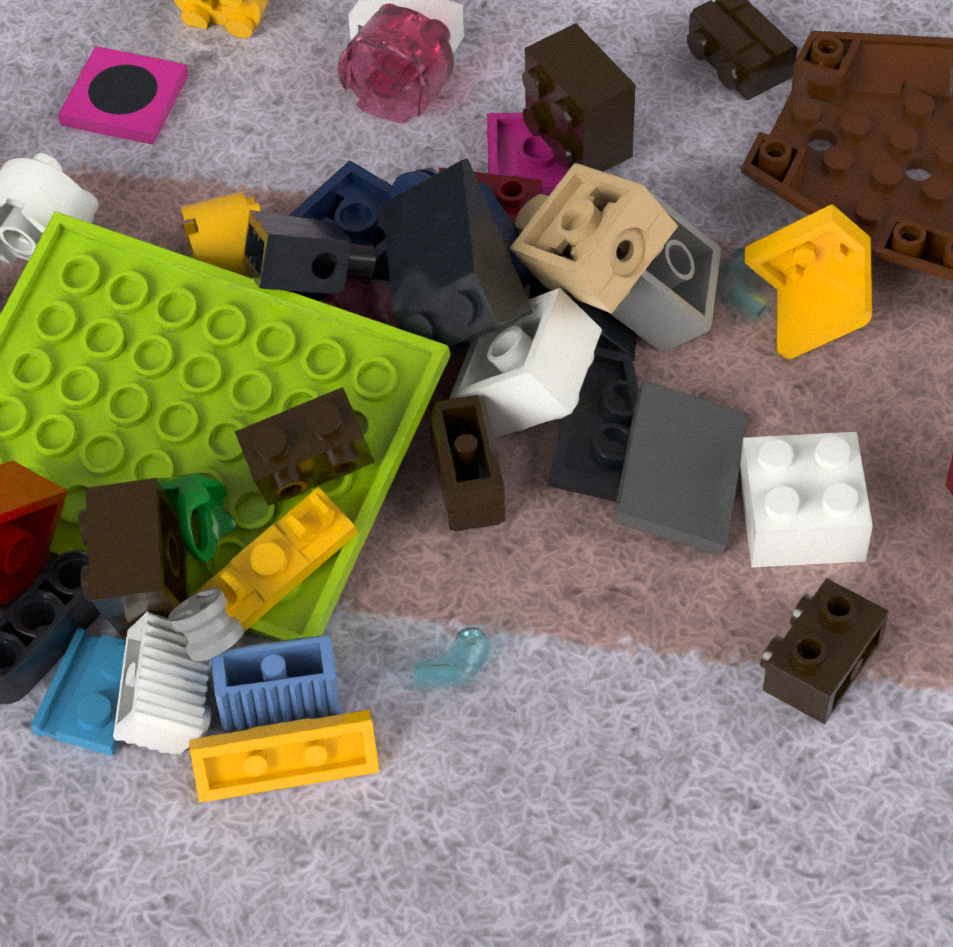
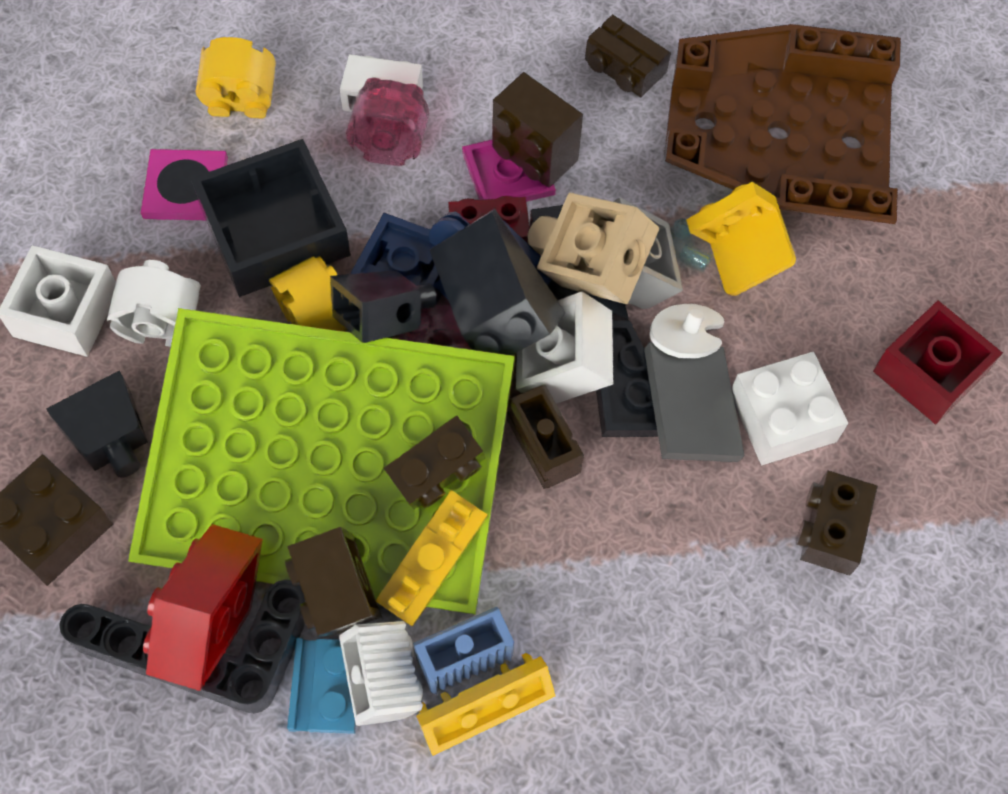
camera: 20 degrees left, 10 degrees up
(204, 497) = (368, 527): green piece -> none
(206, 624) = (406, 626): light grey wheel -> none
(208, 136) = (270, 215): none -> black container
(458, 664) = (585, 596): clear light blue arm -> none
(696, 381) = (683, 333): none -> white piece

